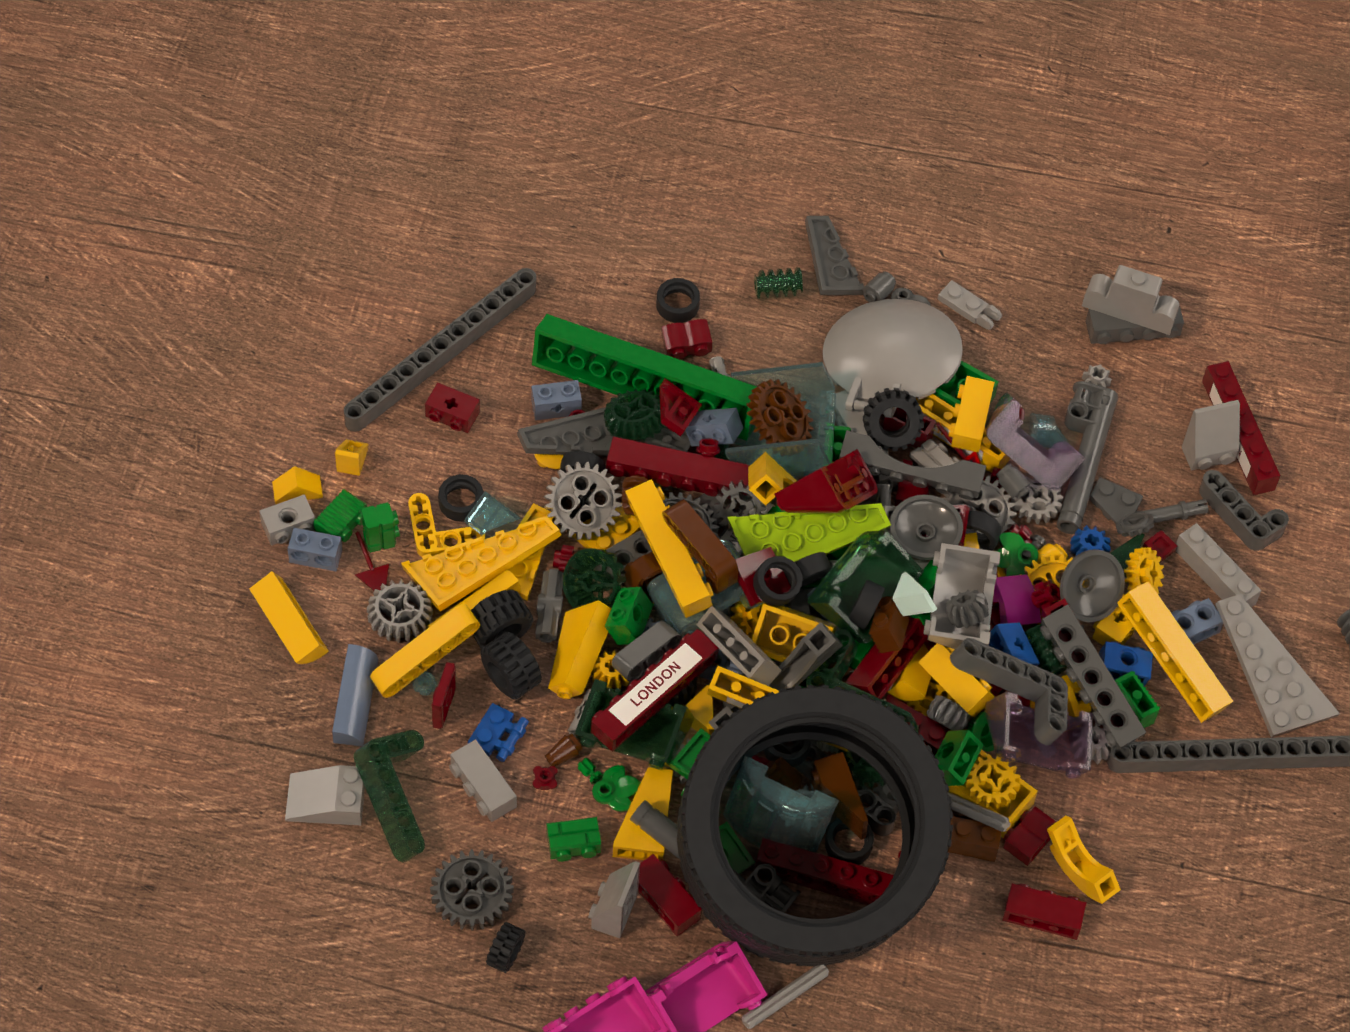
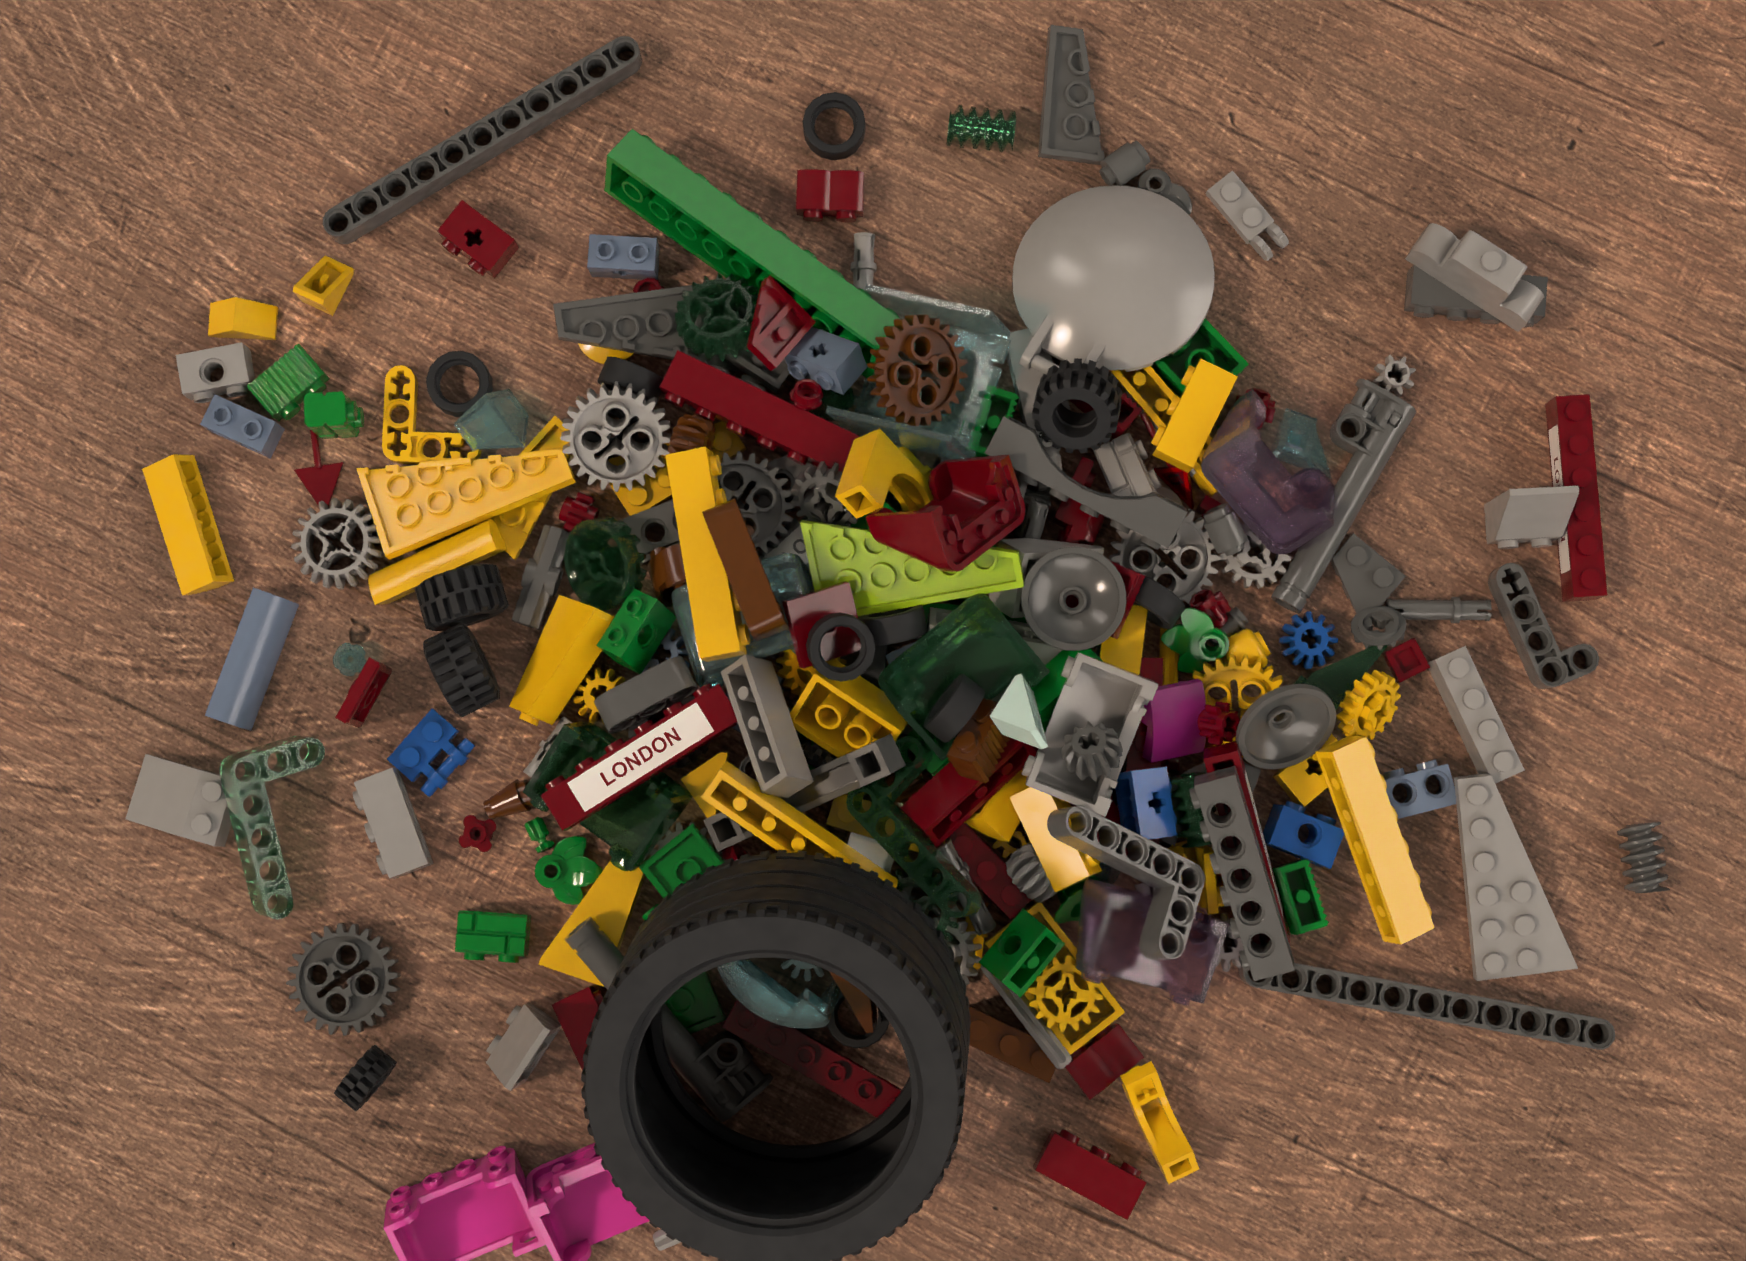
camera: 15 degrees right, 25 degrees up
(425, 650) = (350, 624): yellow beam -> none

